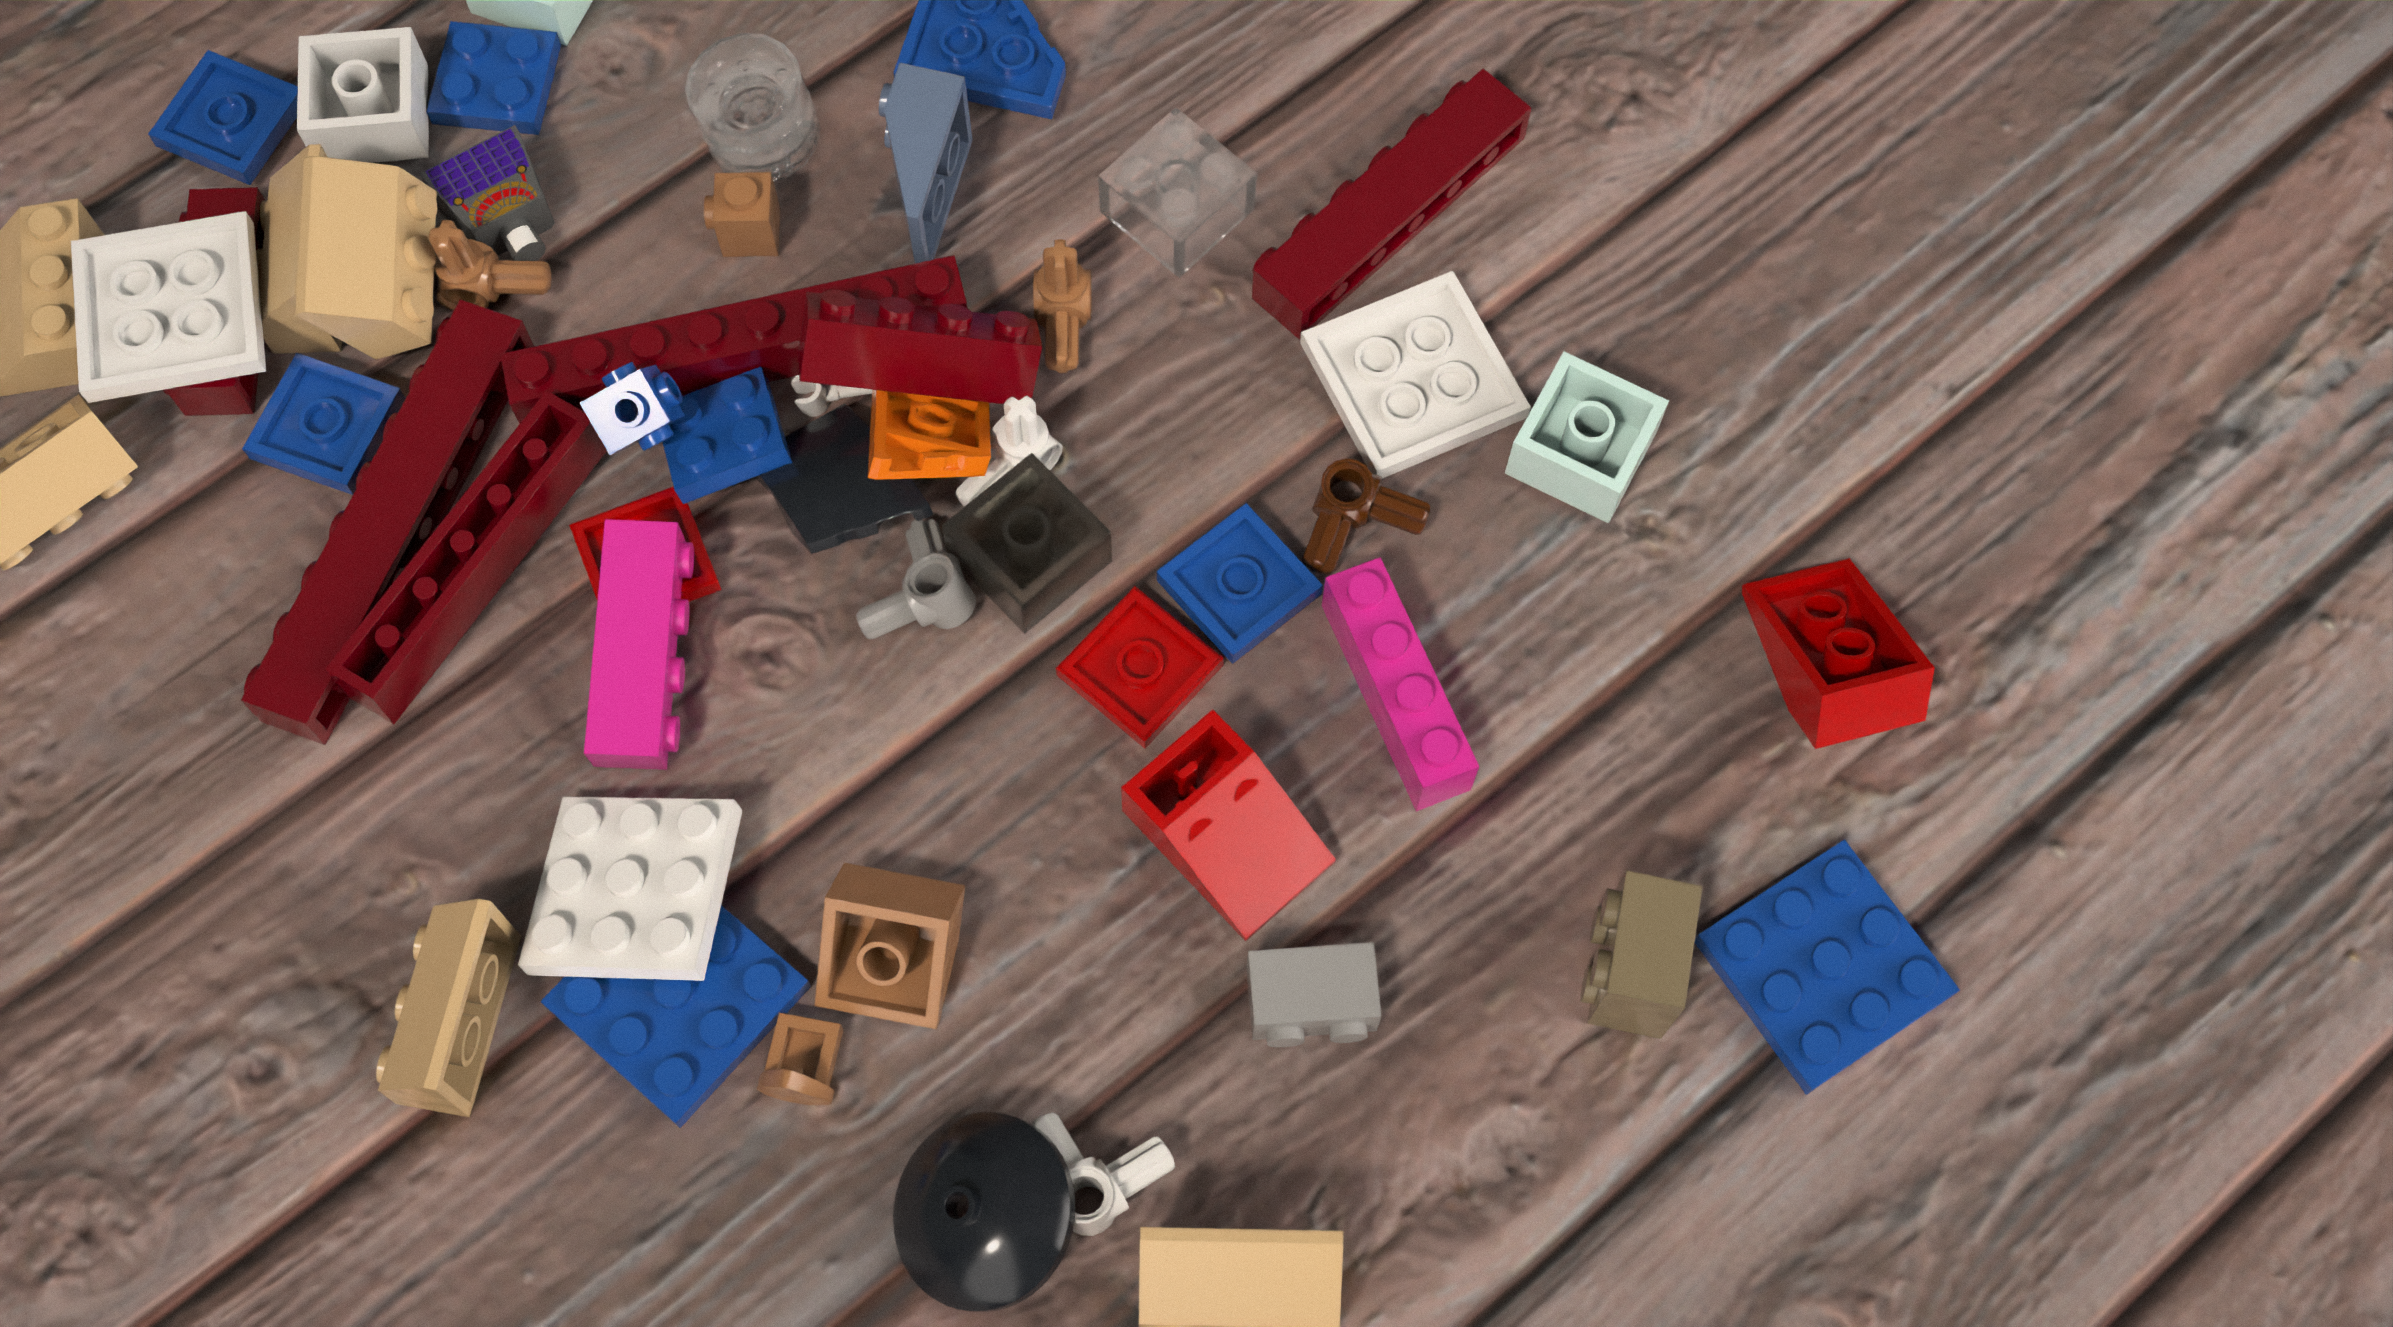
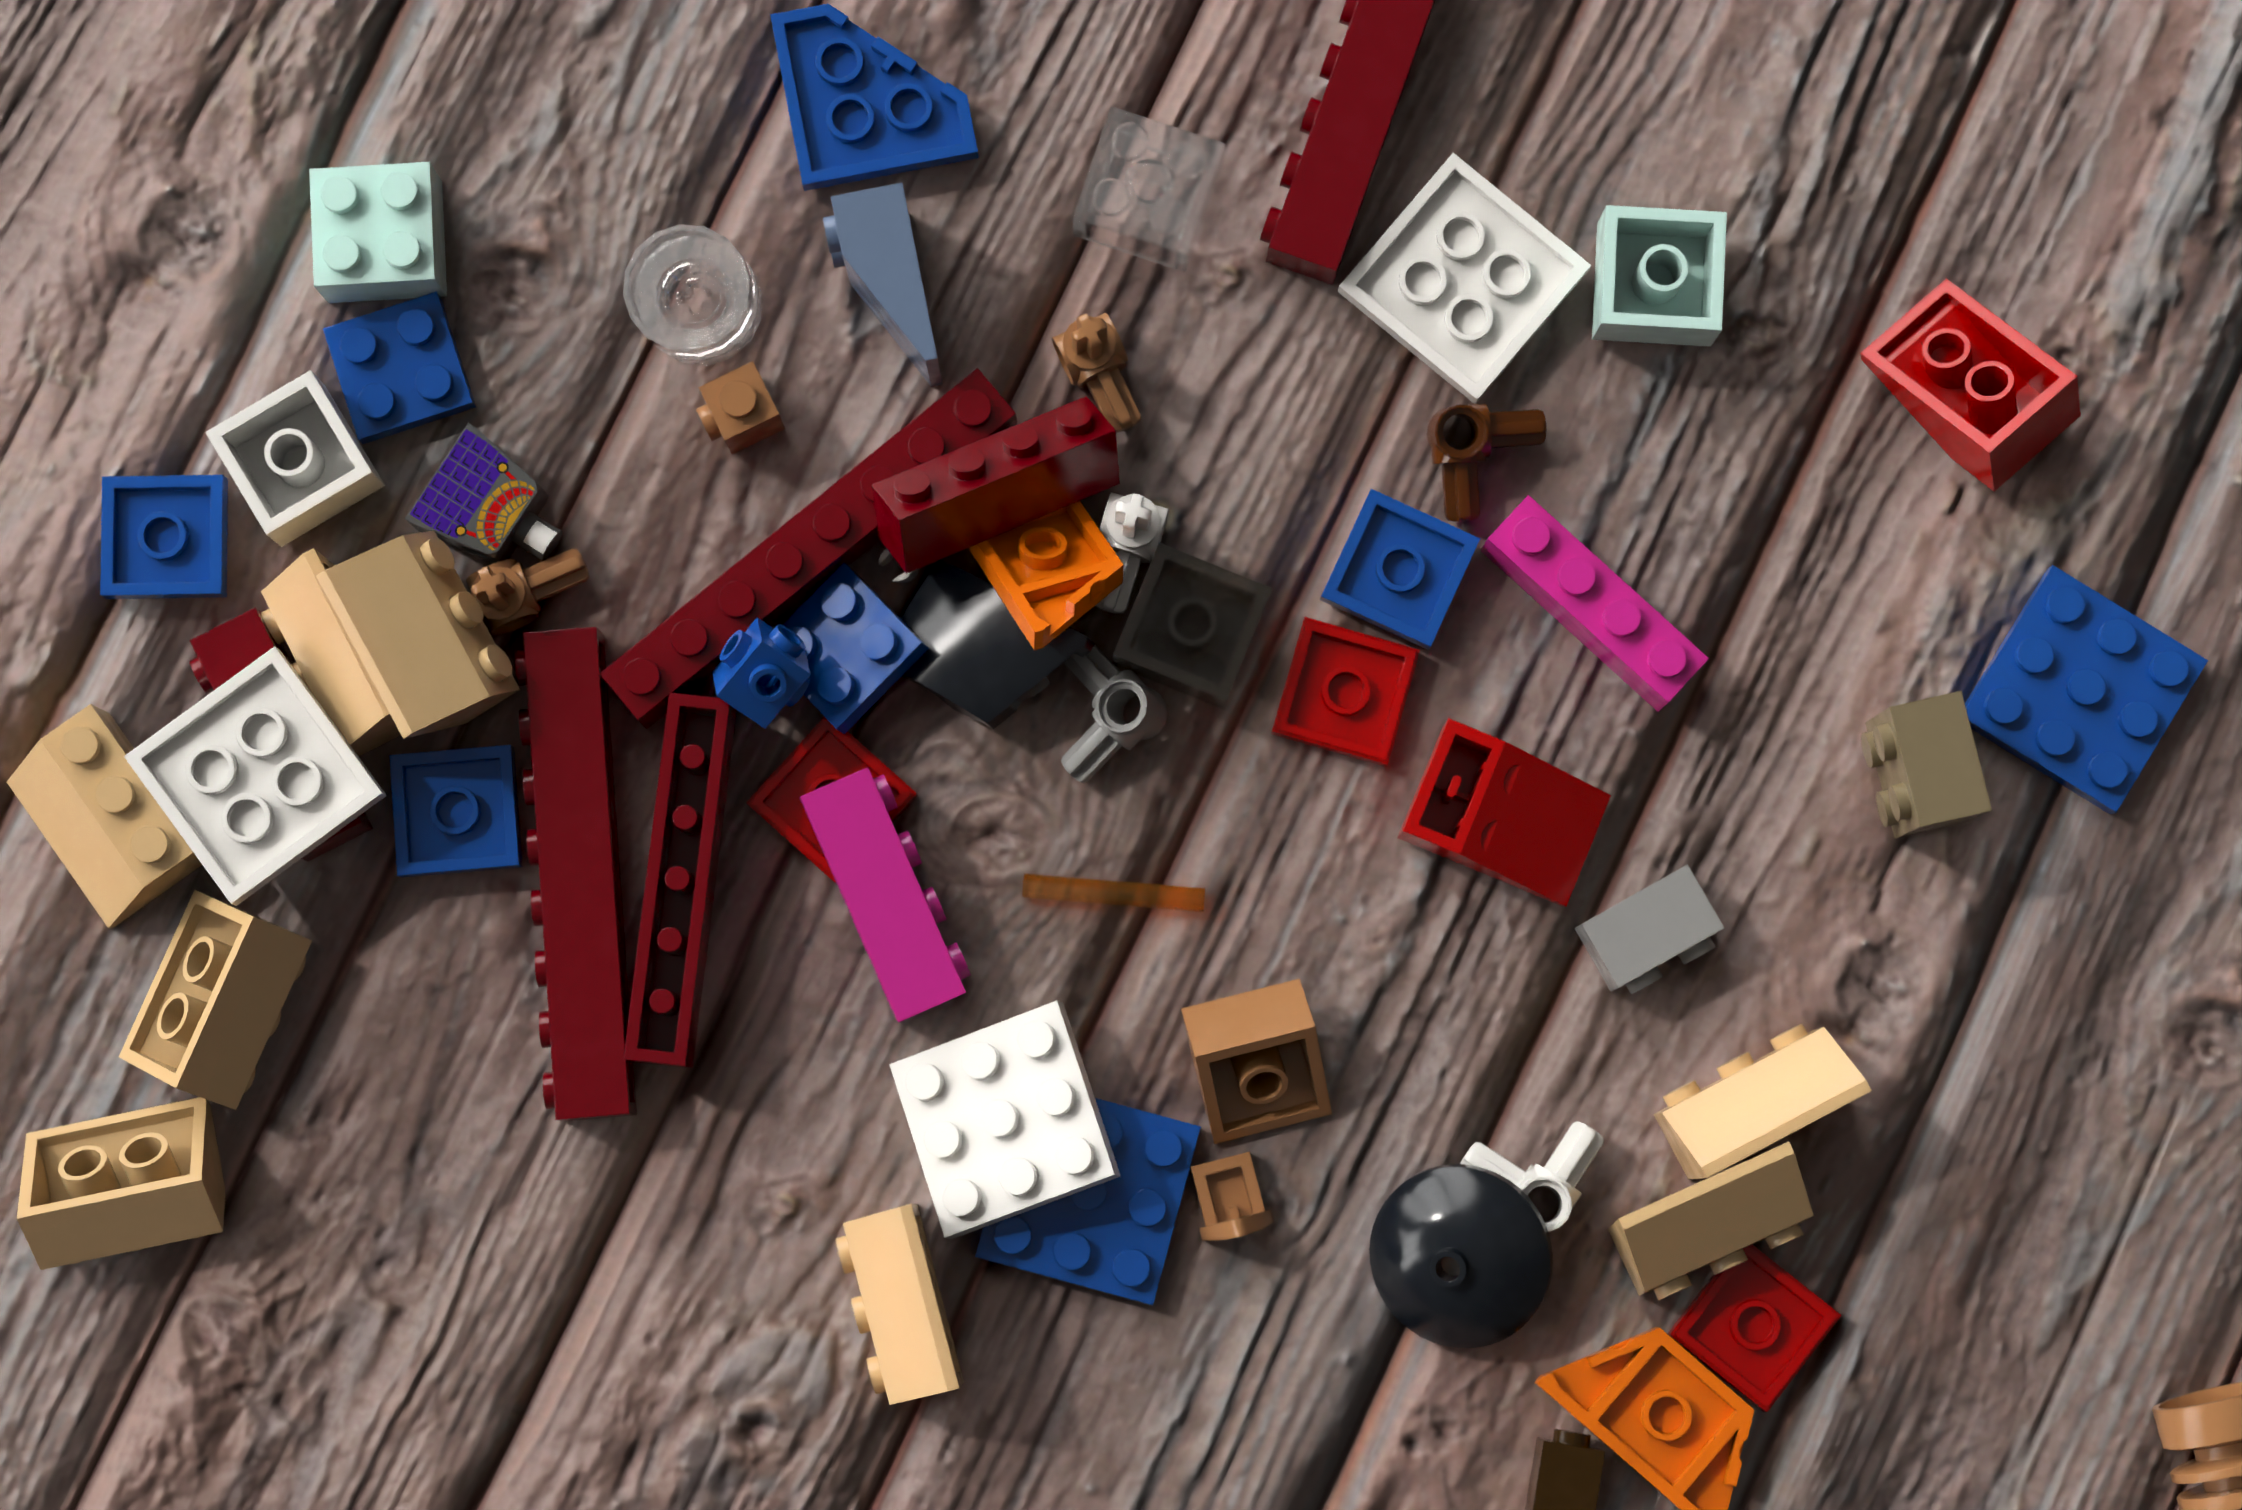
camera: 25 degrees left, 15 degrees up
(844, 743) = (1113, 892): none -> clear orange bar
(1365, 1196) = (1758, 1101): none -> slope

